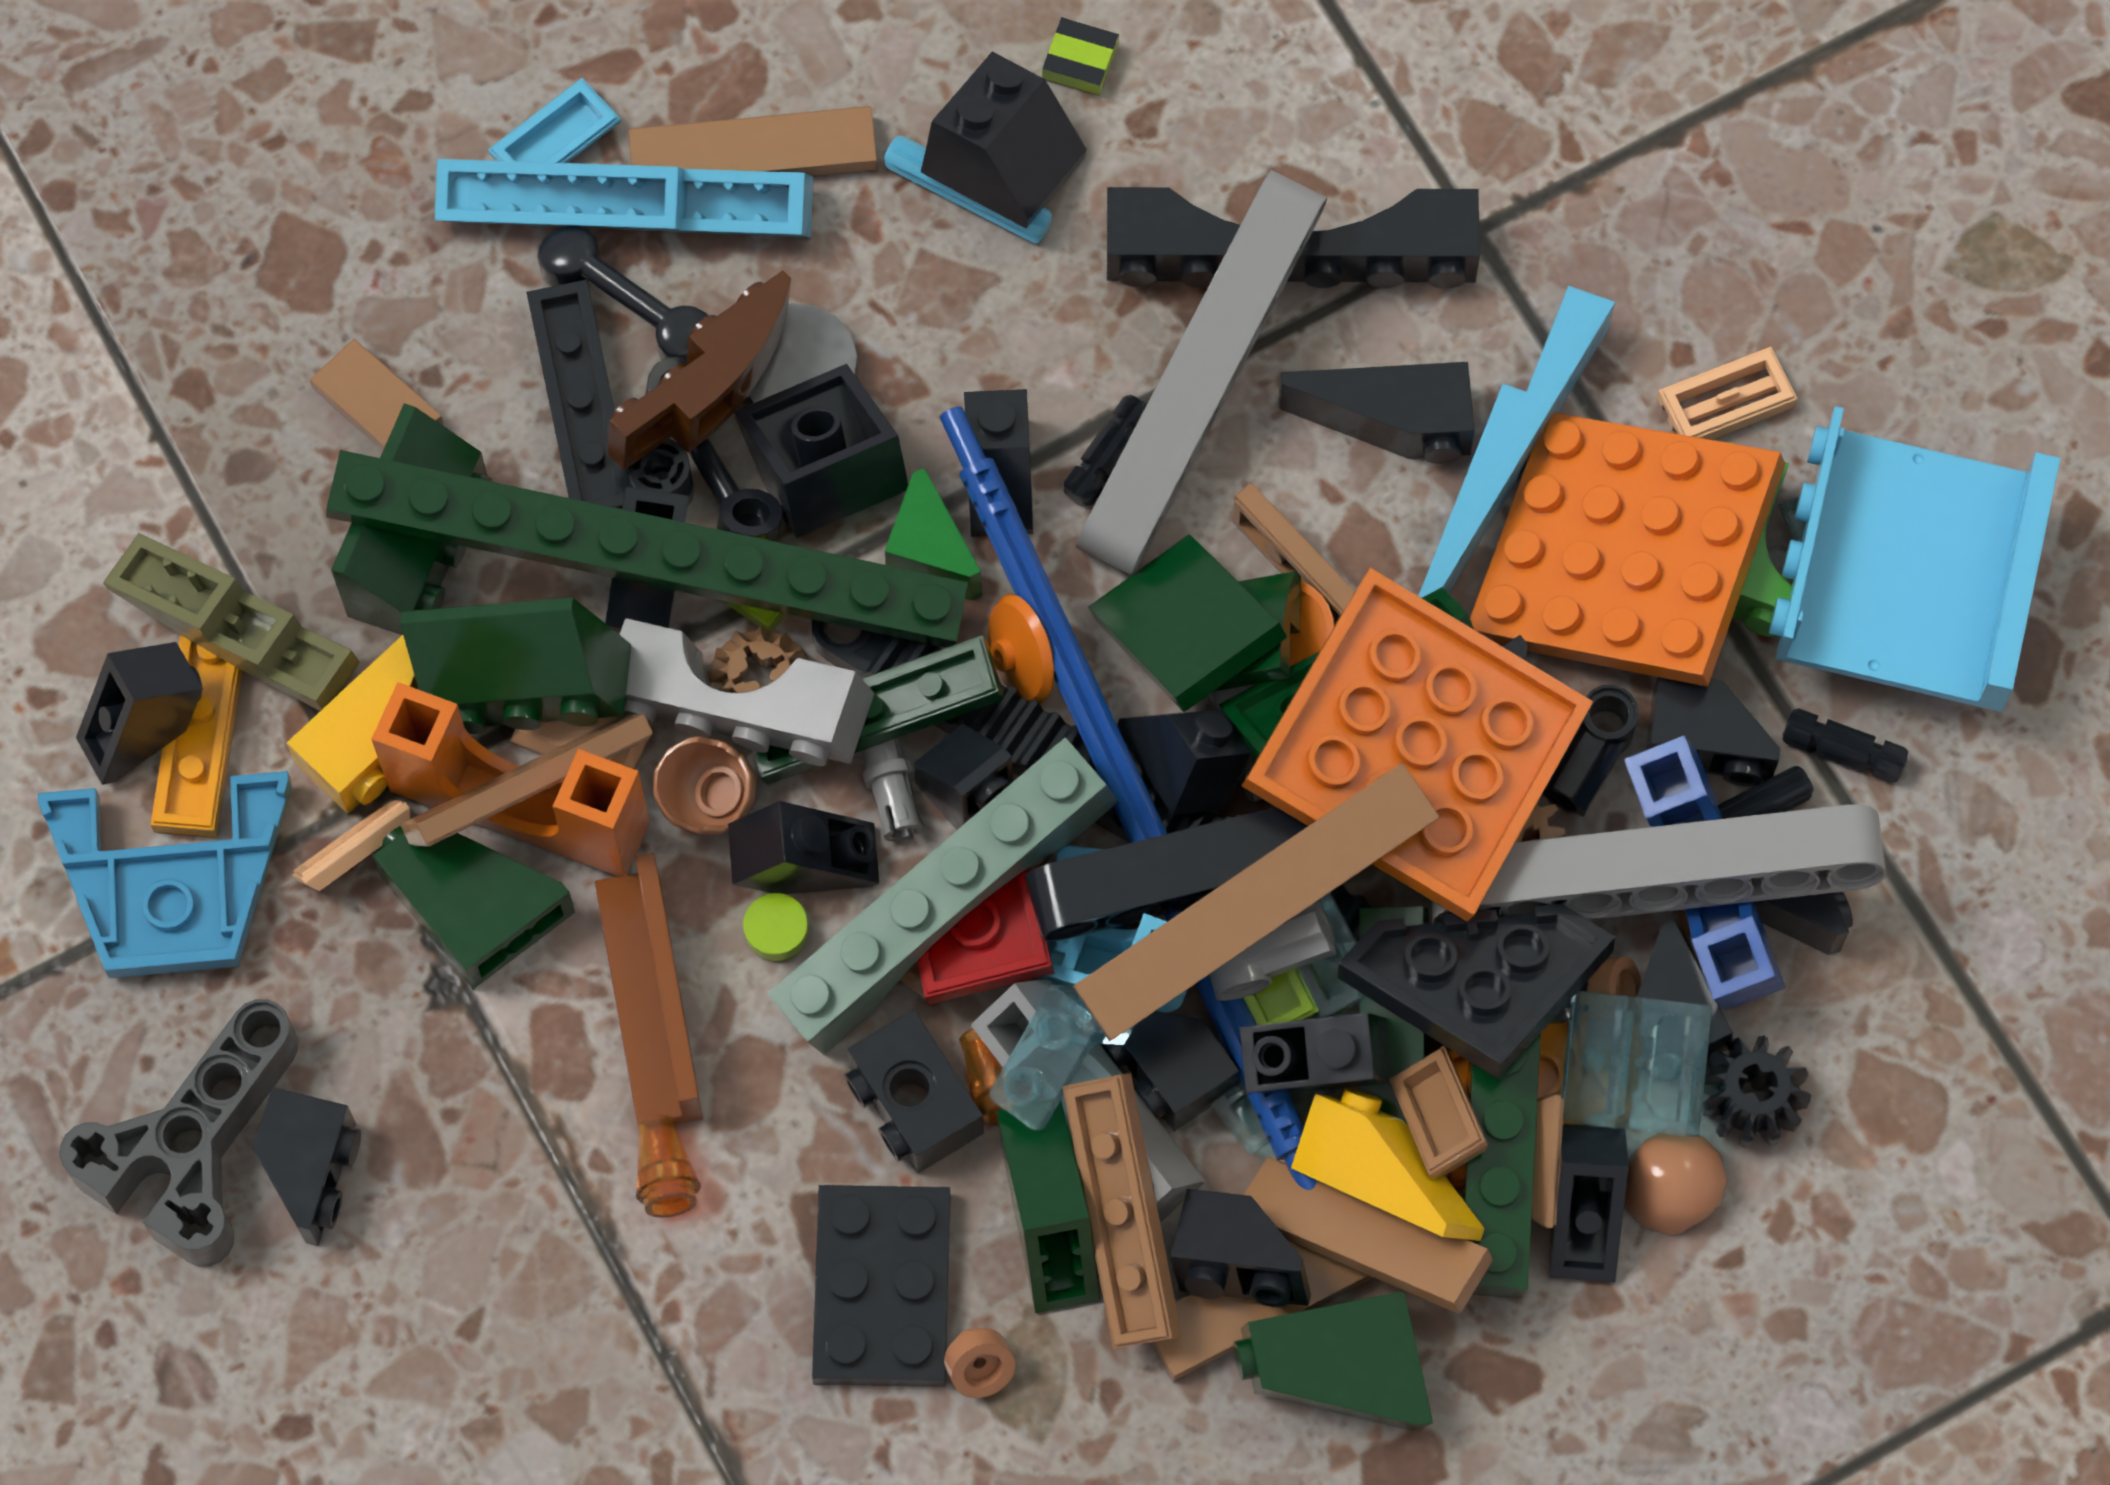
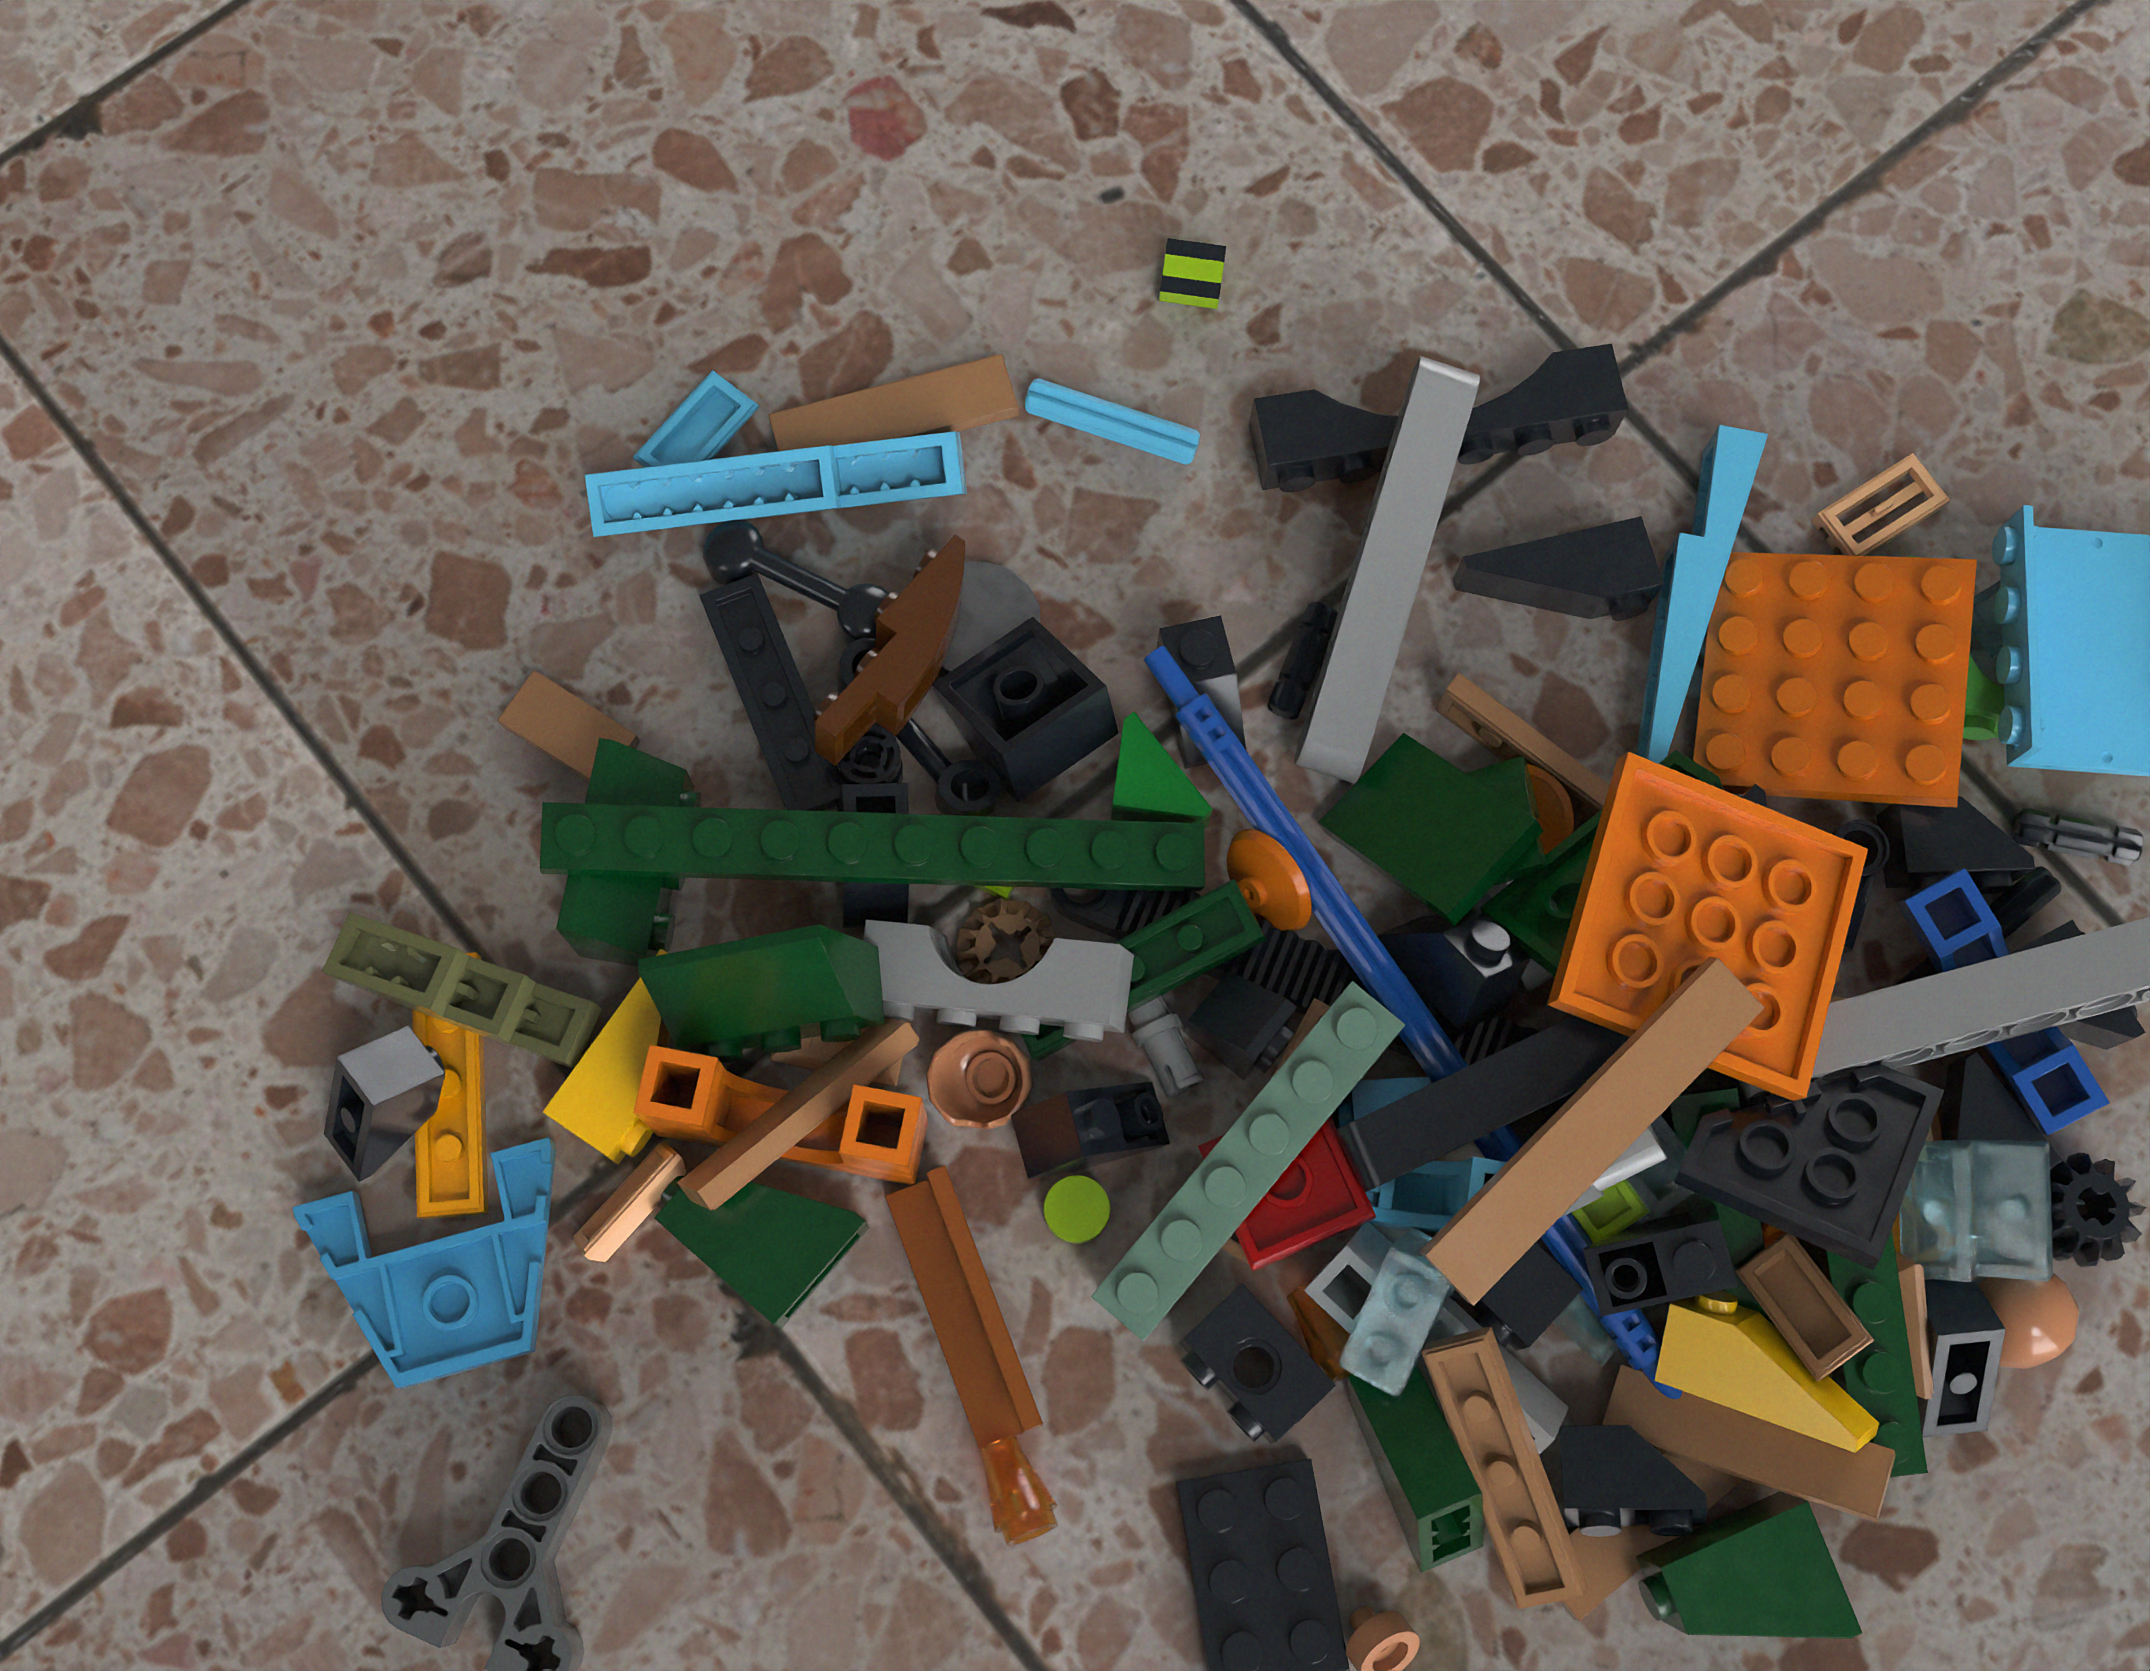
camera: 15 degrees left, 5 degrees up
(303, 1152) = (638, 1556): black slope -> none
(1003, 141) = (1141, 369): black slope -> none

